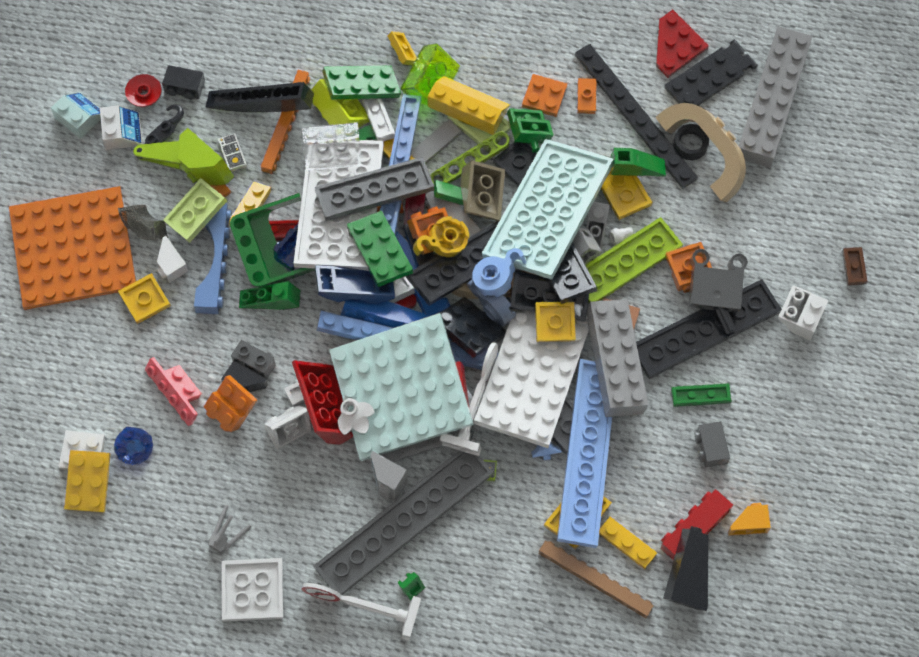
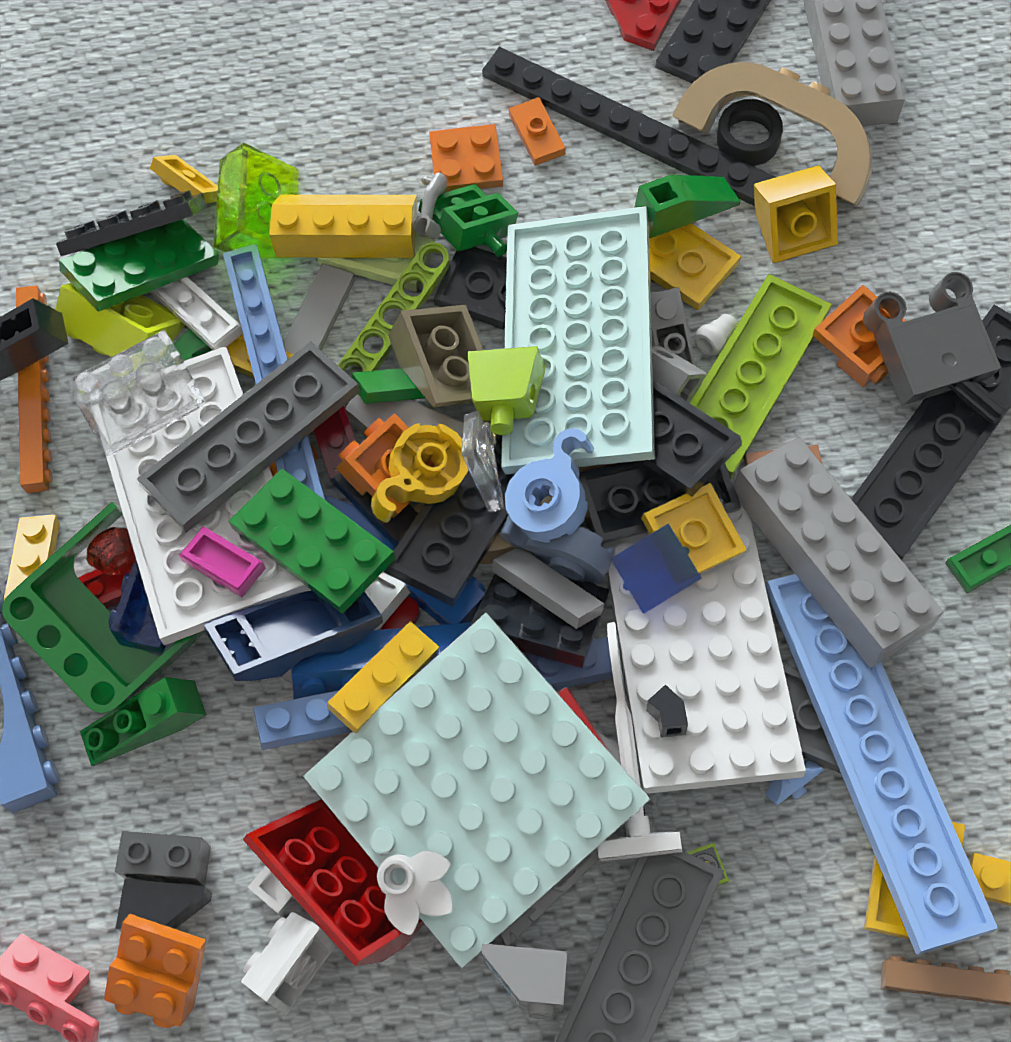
camera: 20 degrees left, 0 degrees up
(289, 215) = (111, 551): none -> clear red cone
(336, 241) = (222, 561): none -> dark pink tile
(362, 61) = (121, 225): none -> black plate
(382, 322) = (382, 677): none -> yellow plate
(473, 245) = (480, 459): none -> clear wing
(476, 316) = (547, 587): none -> light grey tile
(501, 392) = (669, 712): none -> black piece
(502, 216) = (505, 384): none -> lime torso
(505, 121) = (424, 224): none -> light grey piece
(529, 329) = (656, 568): none -> clear blue piece
(690, 193) = (797, 213): none -> yellow slope

